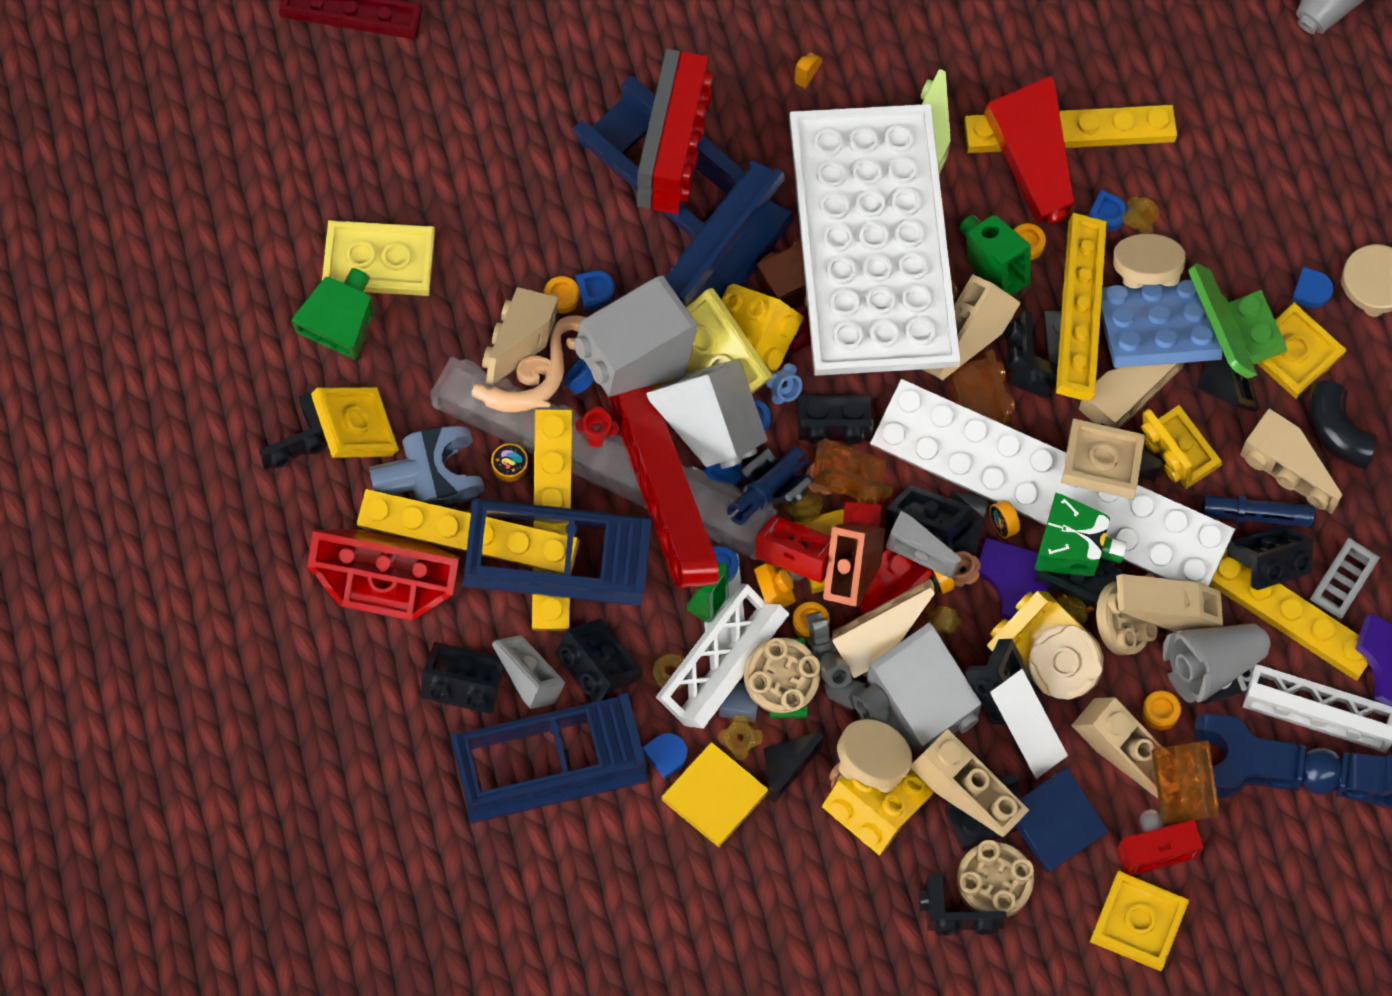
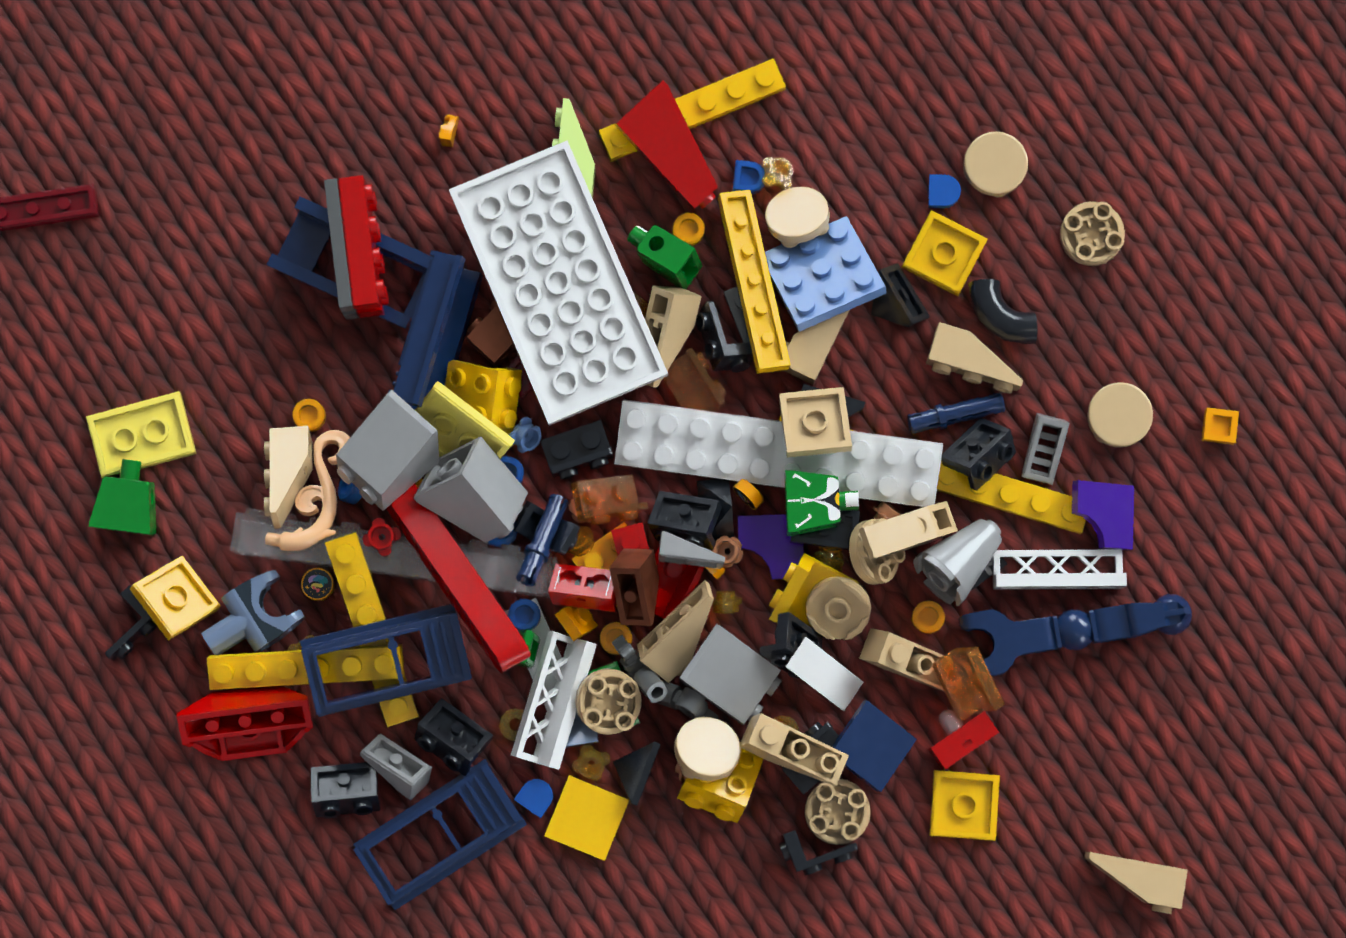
camera: 15 degrees left, 15 degrees up
(595, 288) = (336, 400): blue tile -> none
(1180, 445) = (874, 378): yellow bracket -> none
(1241, 326) = (892, 252): bright green plate -> none

